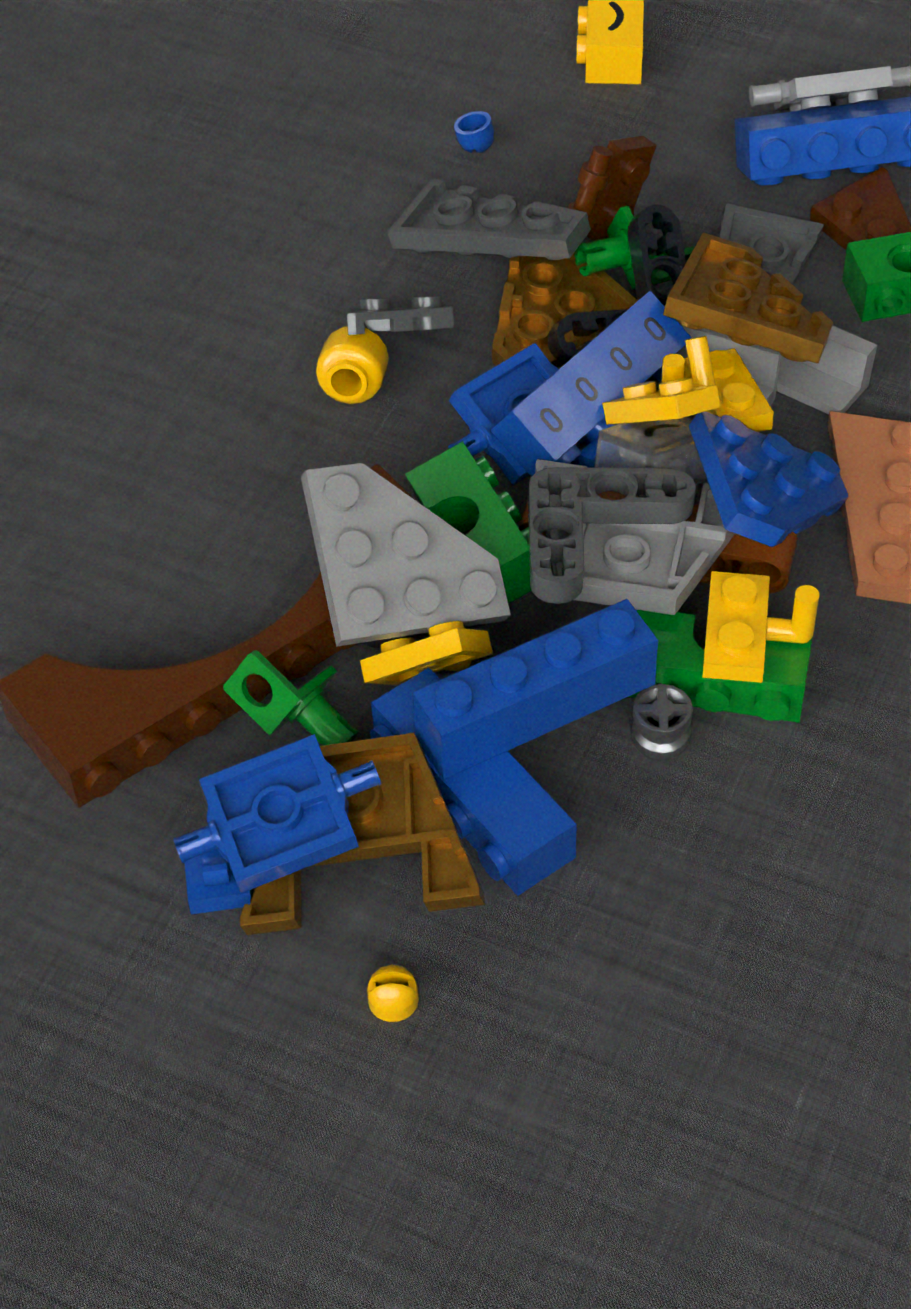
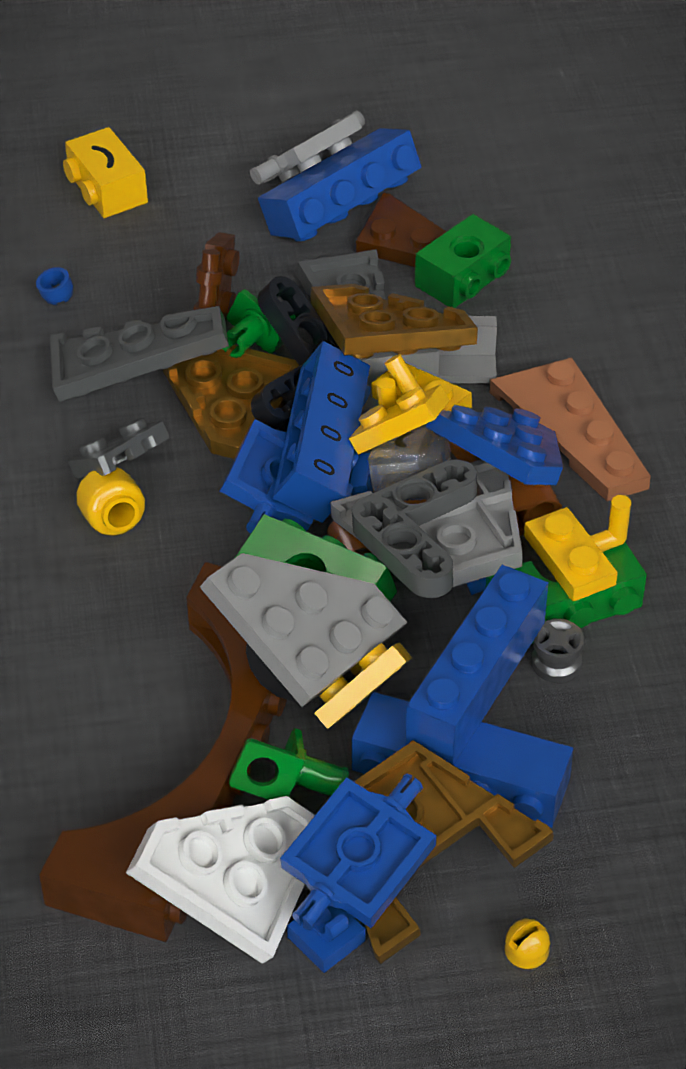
camera: 35 degrees left, 5 degrees down
(148, 762) = (228, 870): none -> white plate

